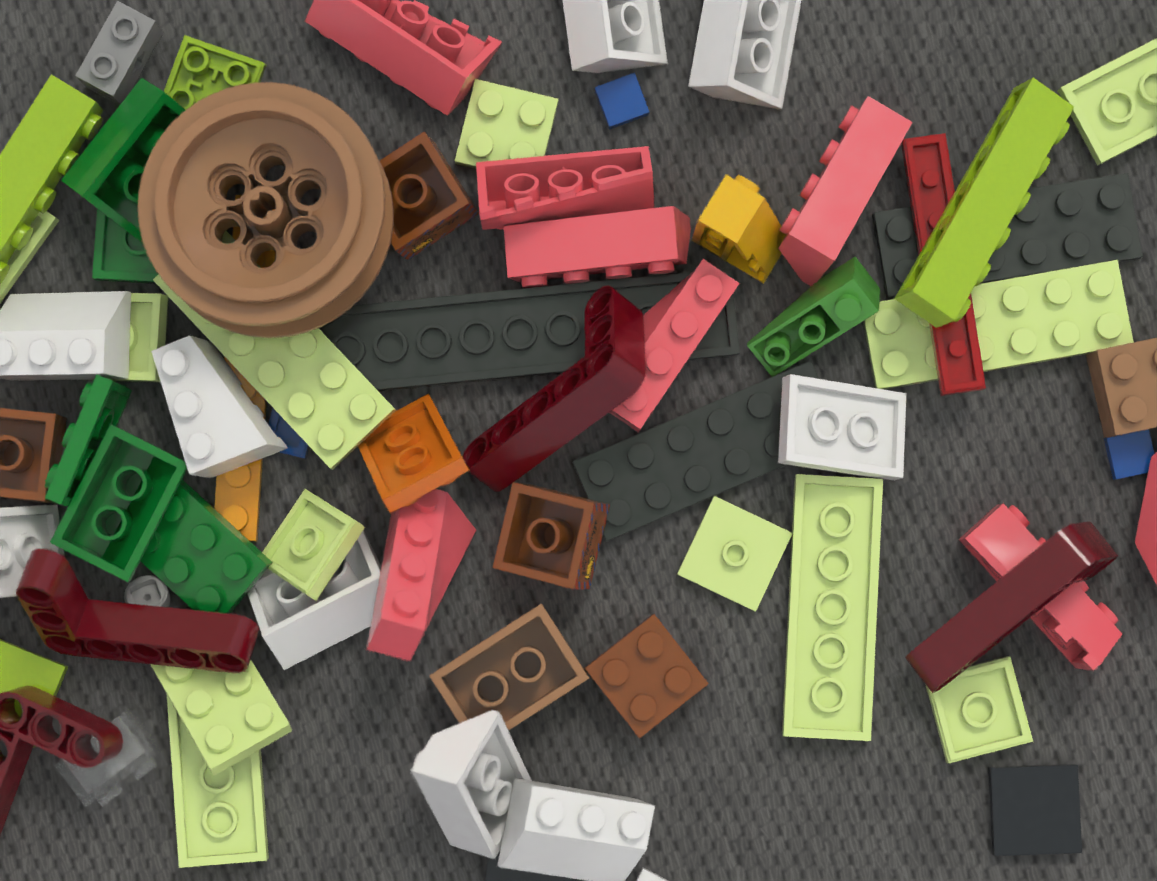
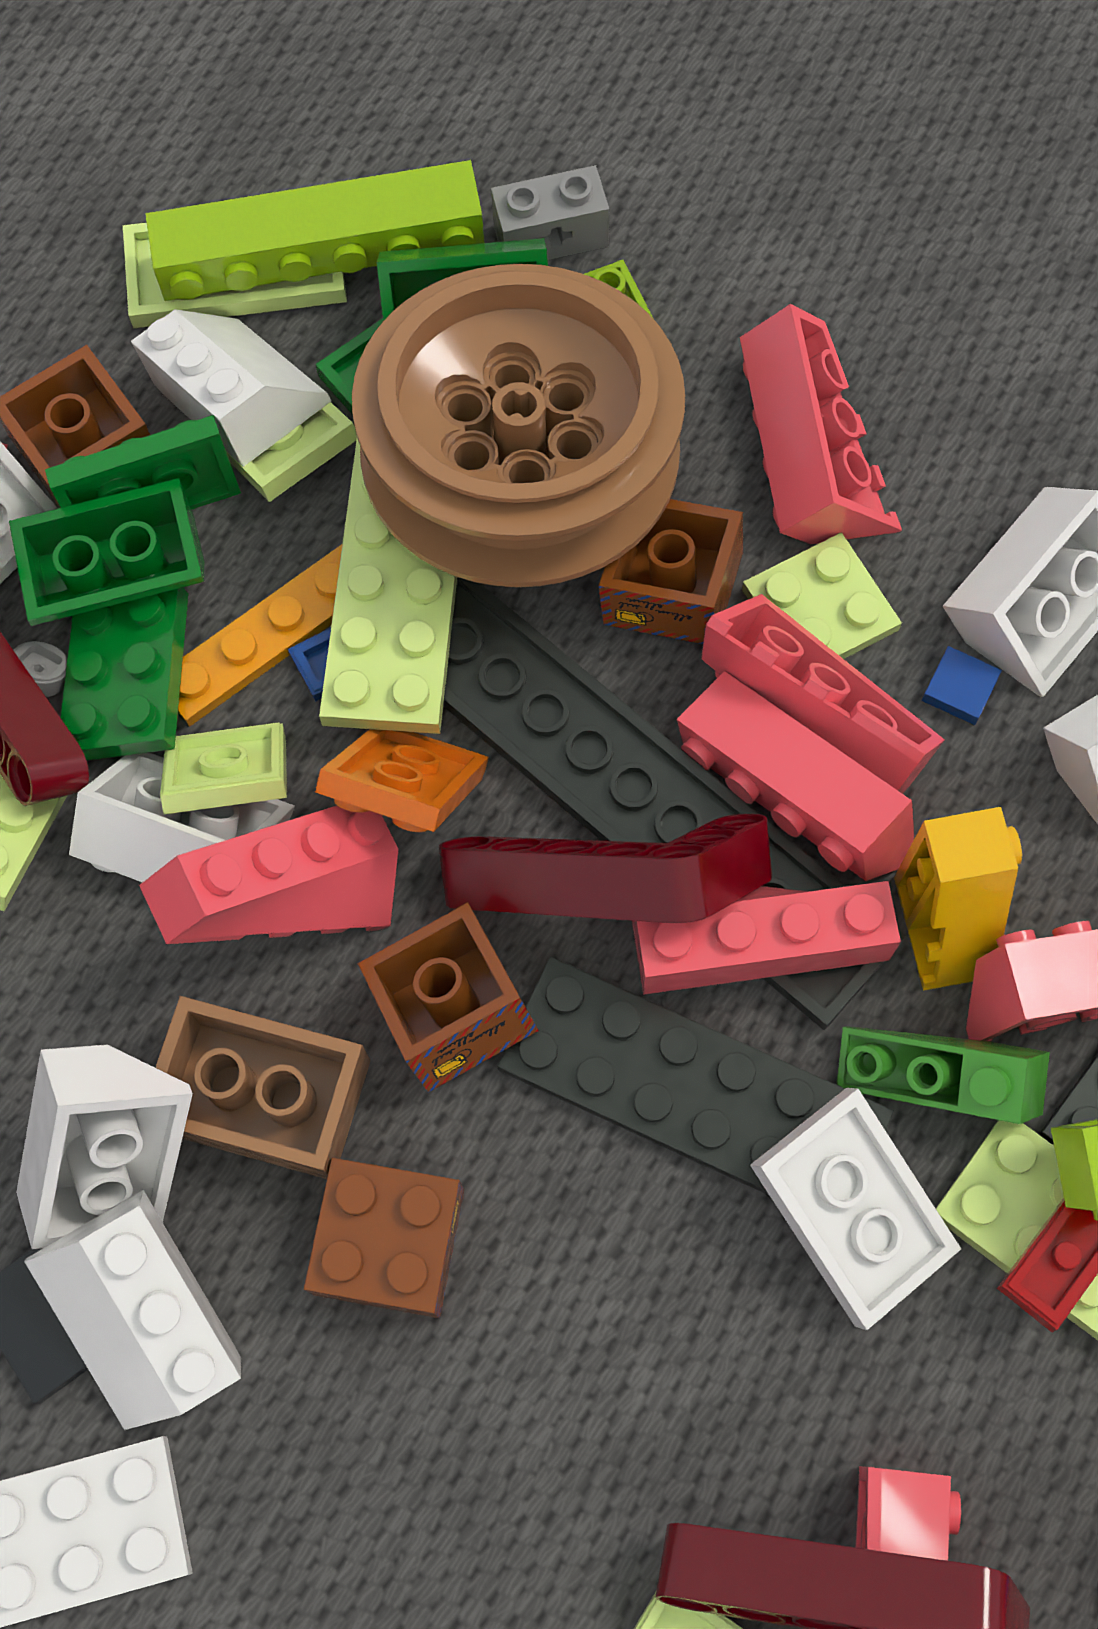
camera: 55 degrees right, 15 degrees down
(210, 409) = (275, 559): white wedge -> none
(734, 553) = (609, 1219): yellowish green plate -> none
(832, 607) = (646, 1388): yellowish green plate -> none

